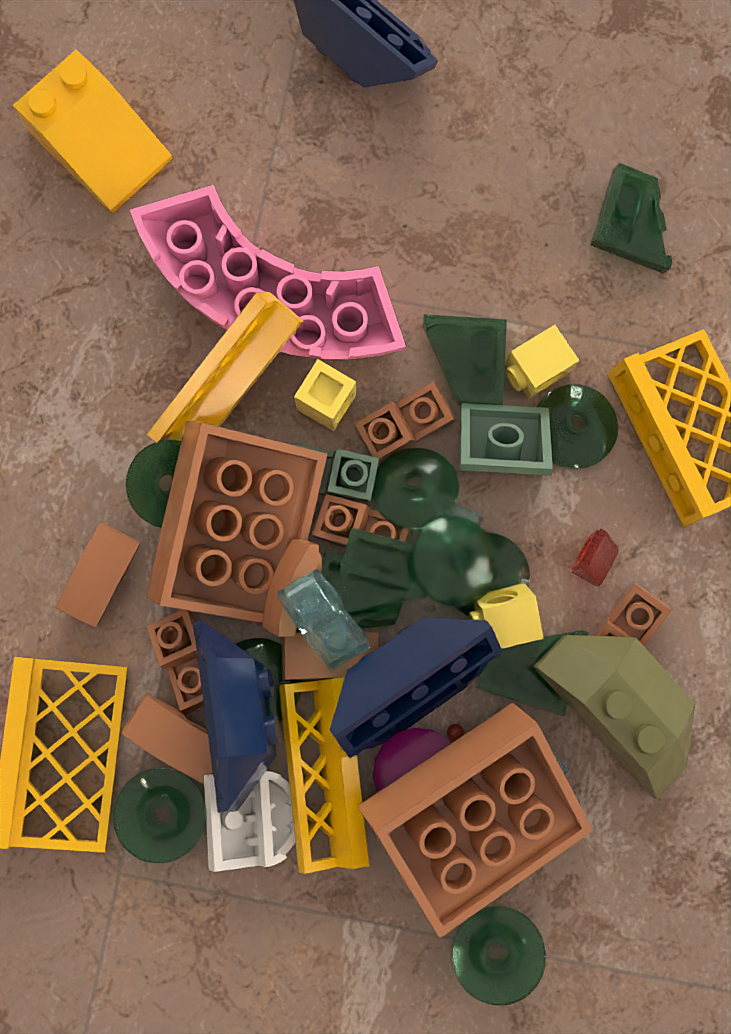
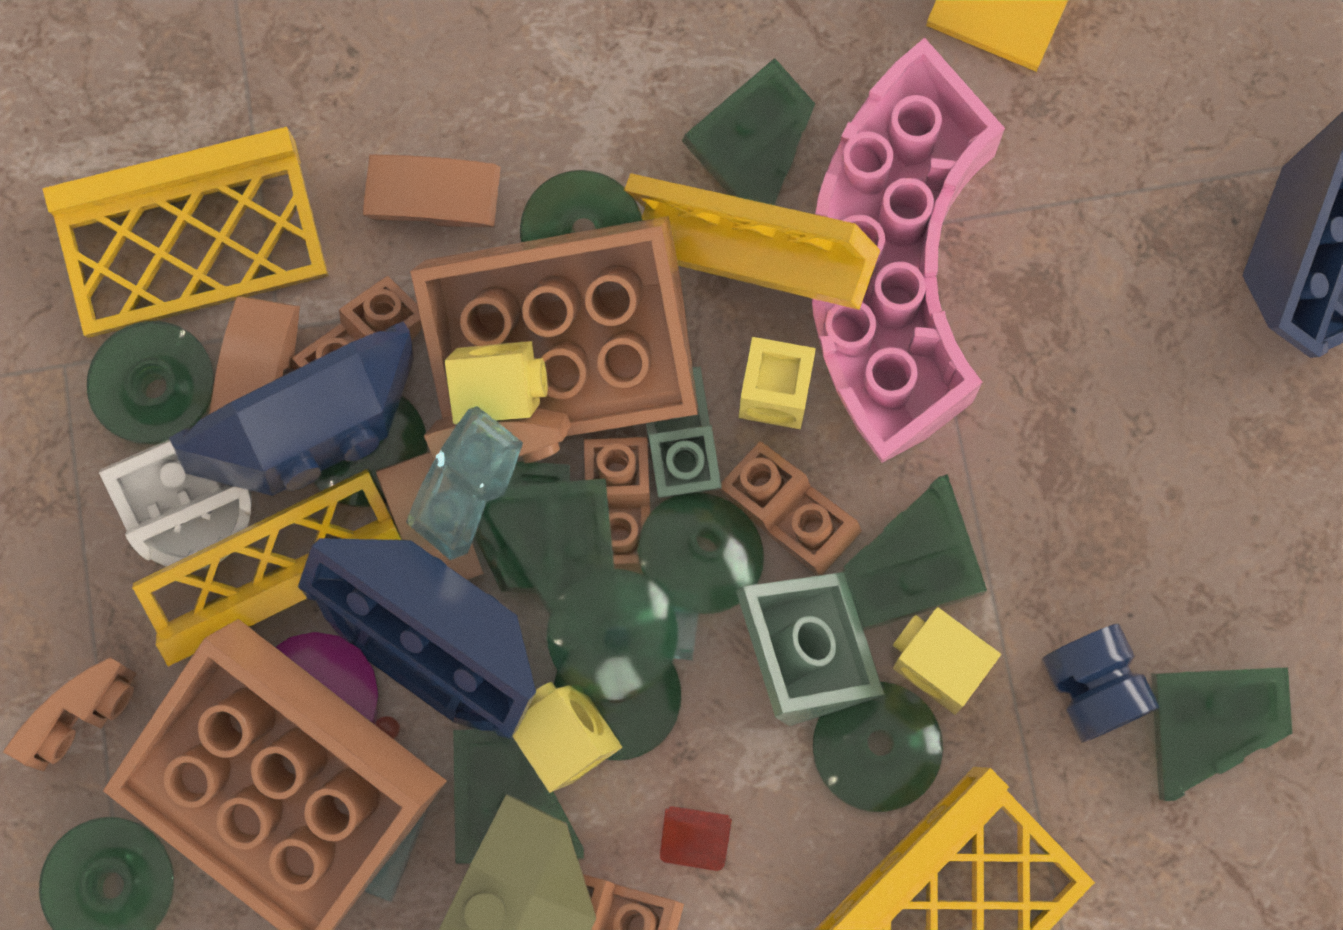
camera: 75 degrees right, 5 degrees down
(147, 350) = (753, 134): none -> clear green wing
(258, 575) = (497, 379): none -> light yellow brick
(369, 931) = (92, 696): none -> nougat slope
(590, 275) = (1100, 682): none -> dark blue wheel

